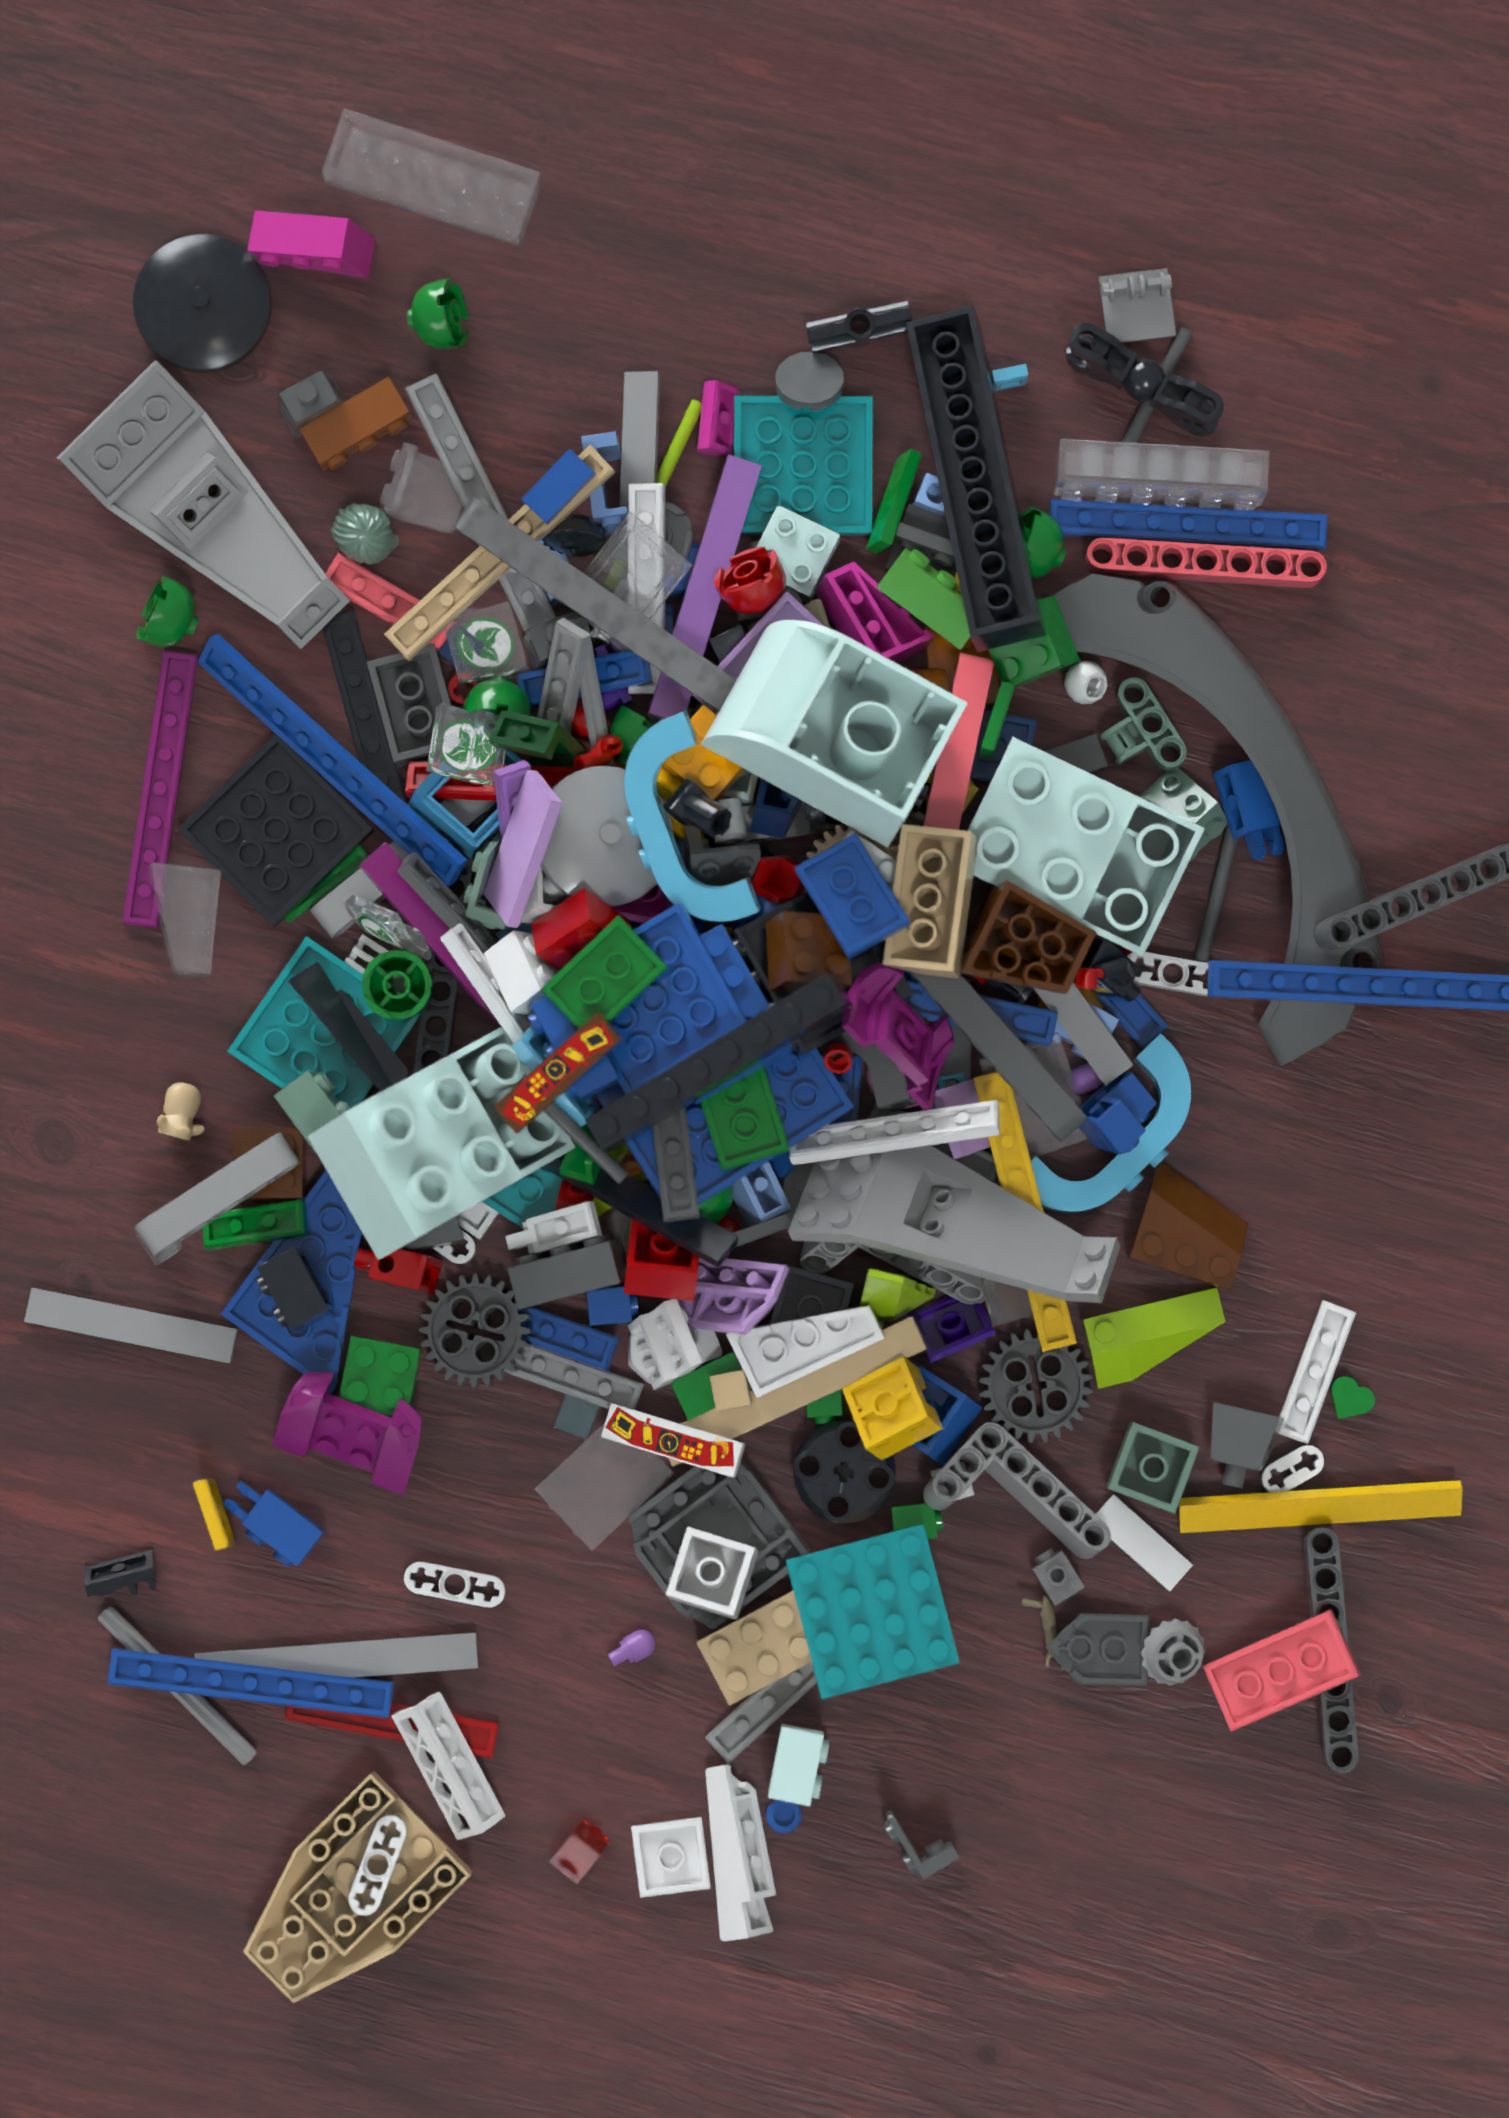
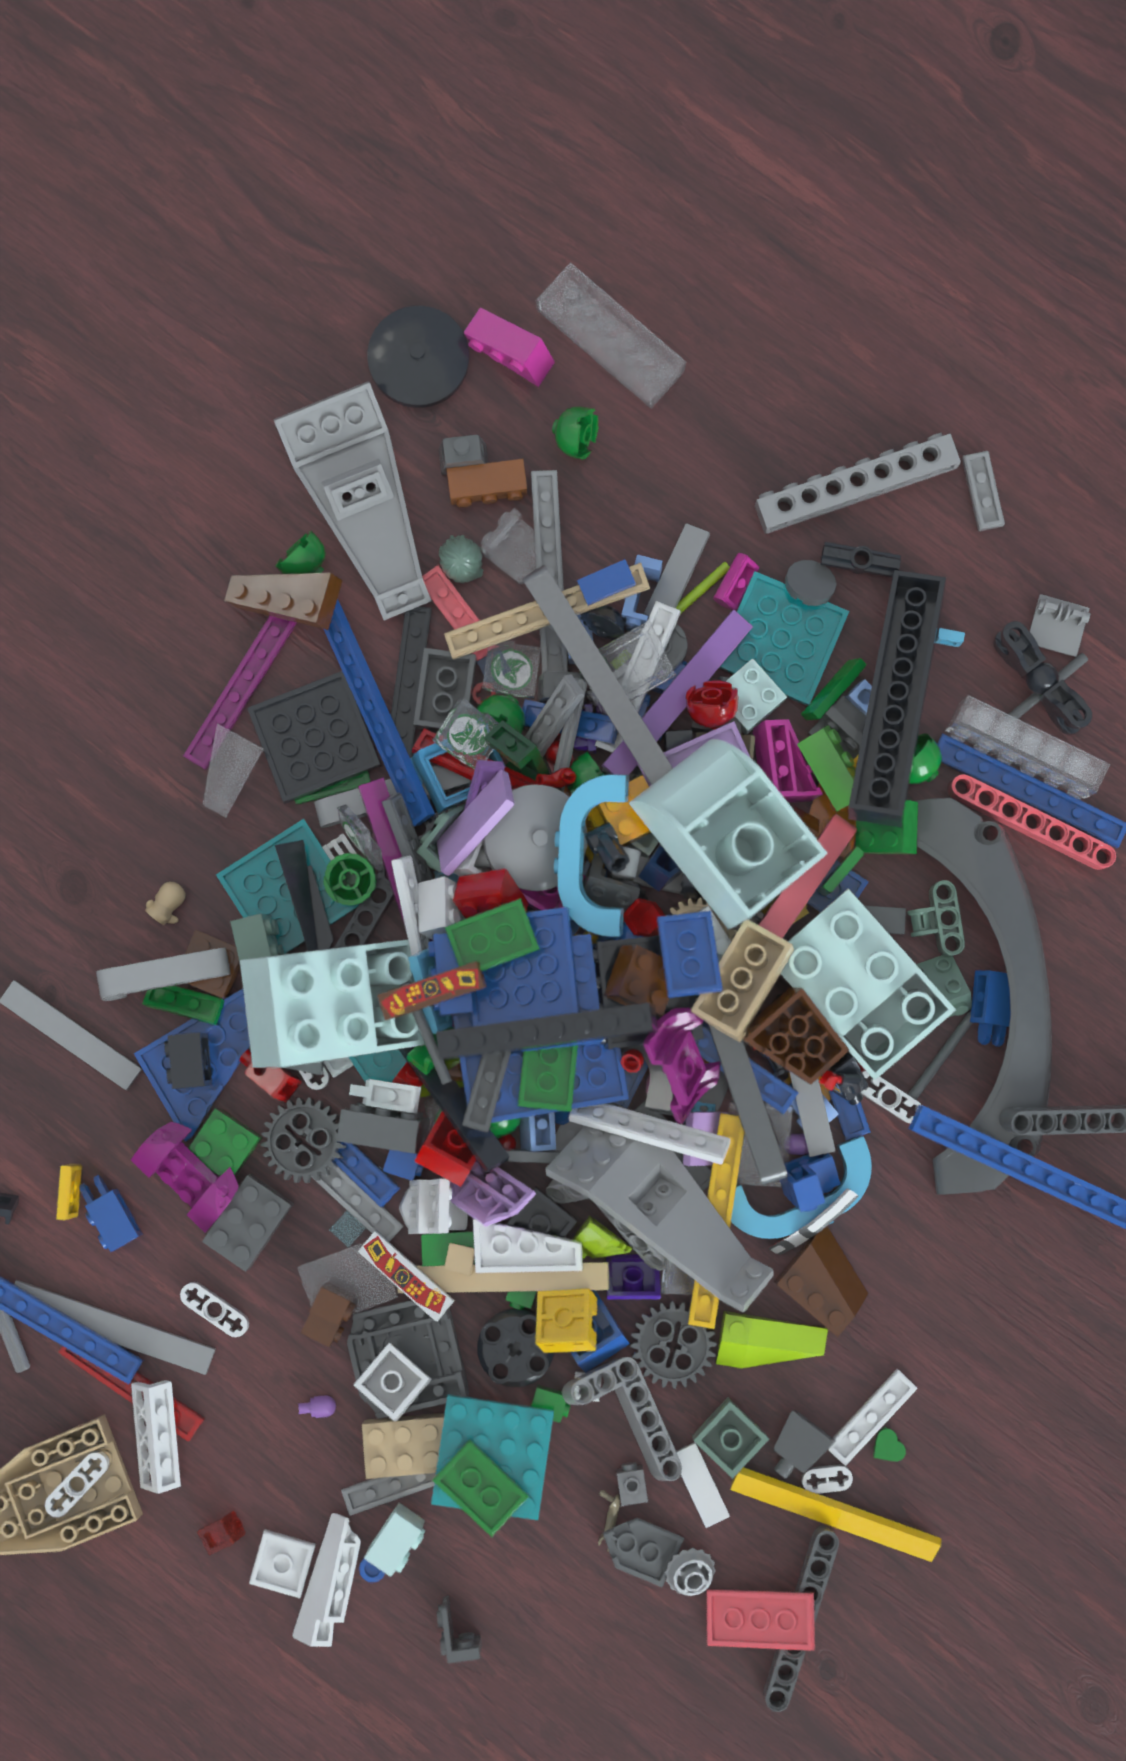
camera: 20 degrees right, 0 degrees up
(174, 669) = (291, 597): none -> wedge
(451, 1459) = (248, 1222): none -> dark grey brick
(597, 1528) = (327, 1314): none -> reddish brown brick
(732, 321) = (939, 446): none -> light grey brick
(873, 1651) = (480, 1487): none -> green tile
(975, 177) = (983, 491): none -> light grey tile
(1085, 682) = (913, 870): white piece -> none
(1148, 1165) = (816, 1224): none -> sticker

